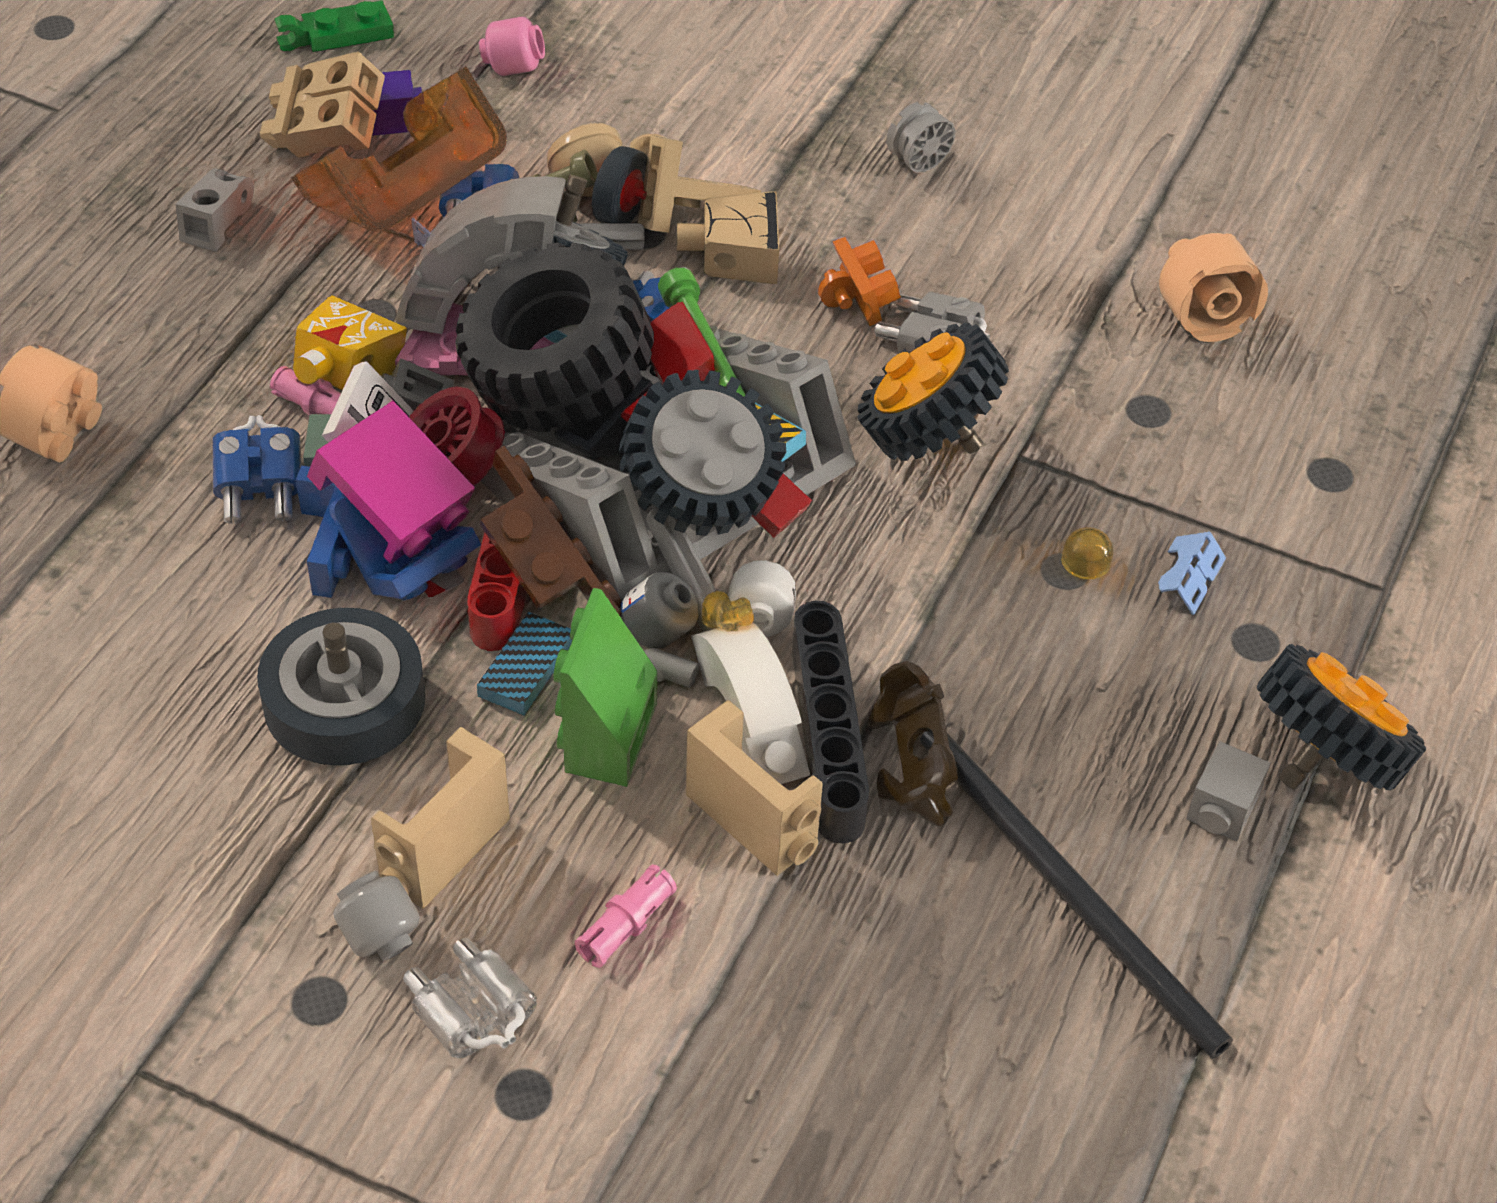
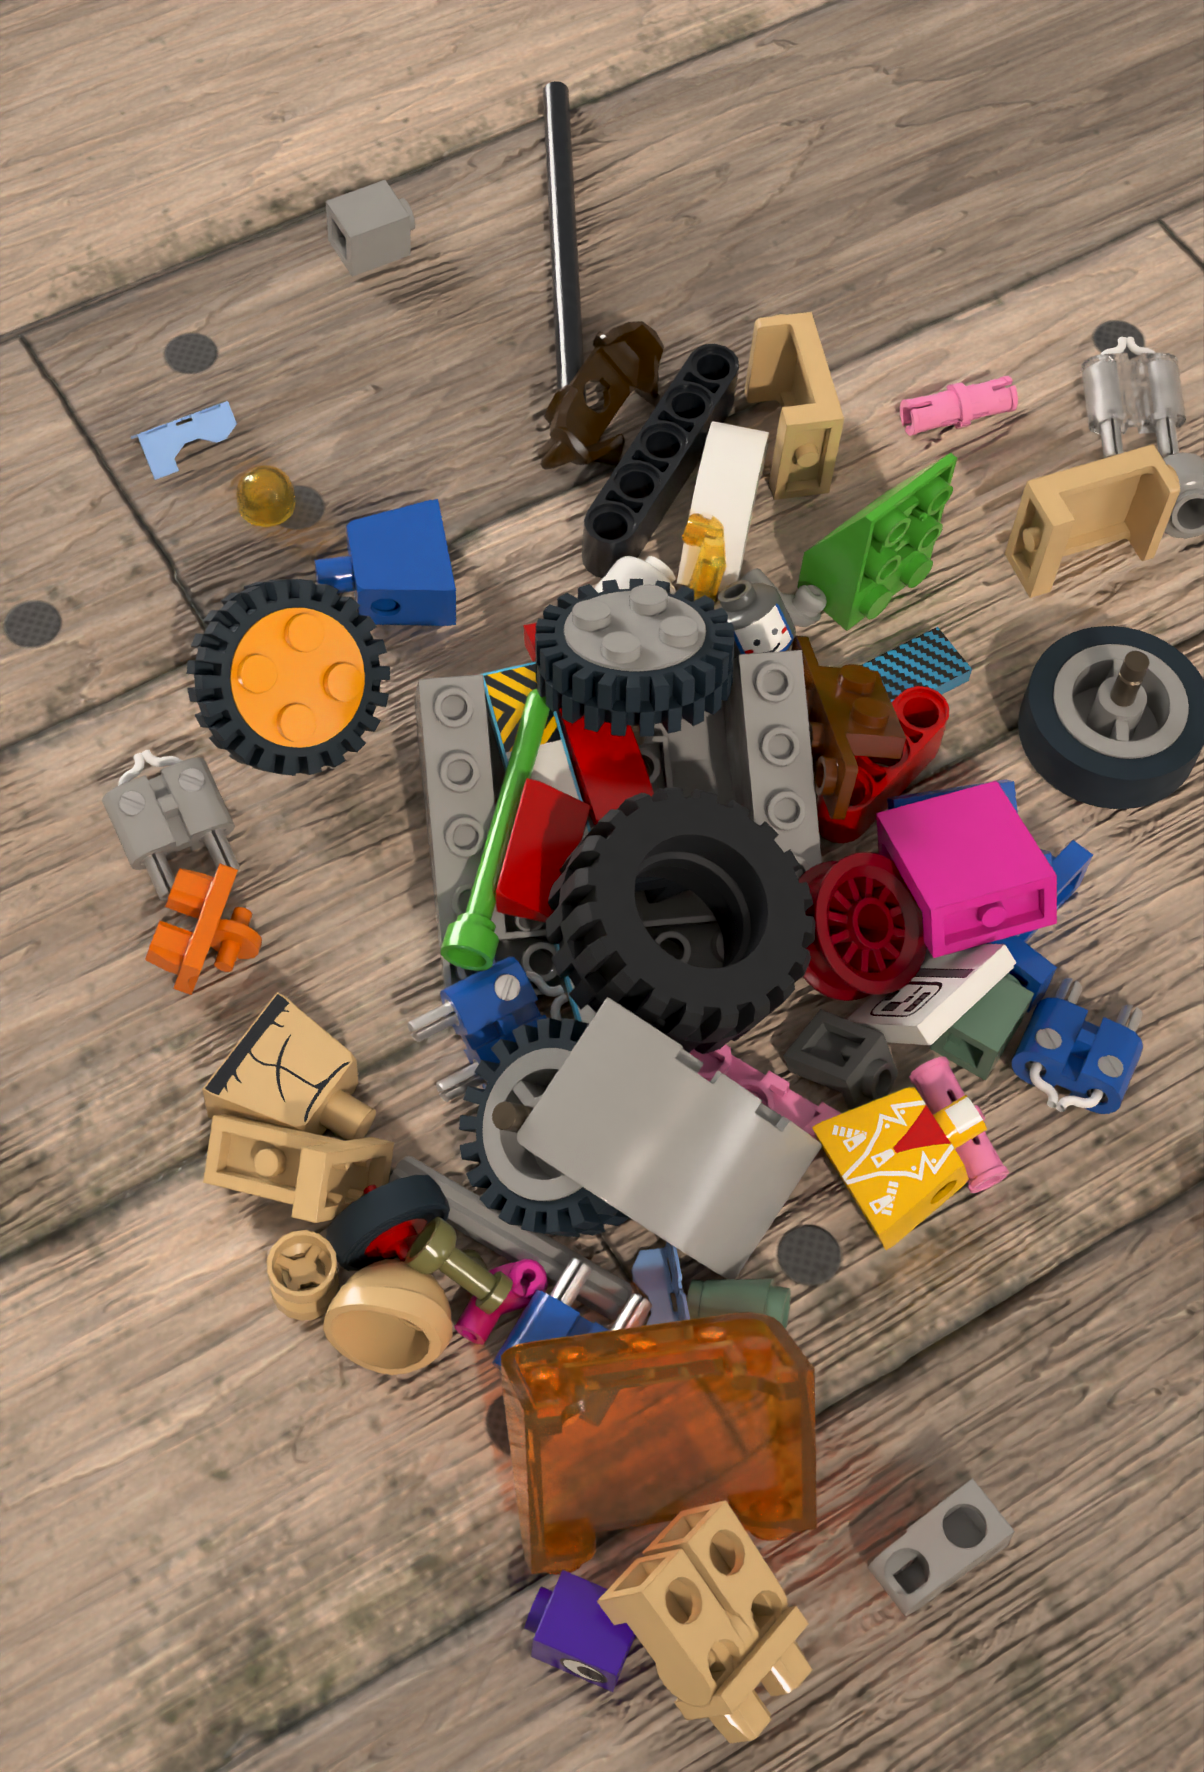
camera: 150 degrees left, 10 degrees up
(390, 255) = (738, 1296): none -> sand green cone
(512, 46) = (326, 1653): bright pink head -> none
(944, 538) = (397, 567): none -> blue torso
(1338, 719) = (238, 184): black wheel -> none

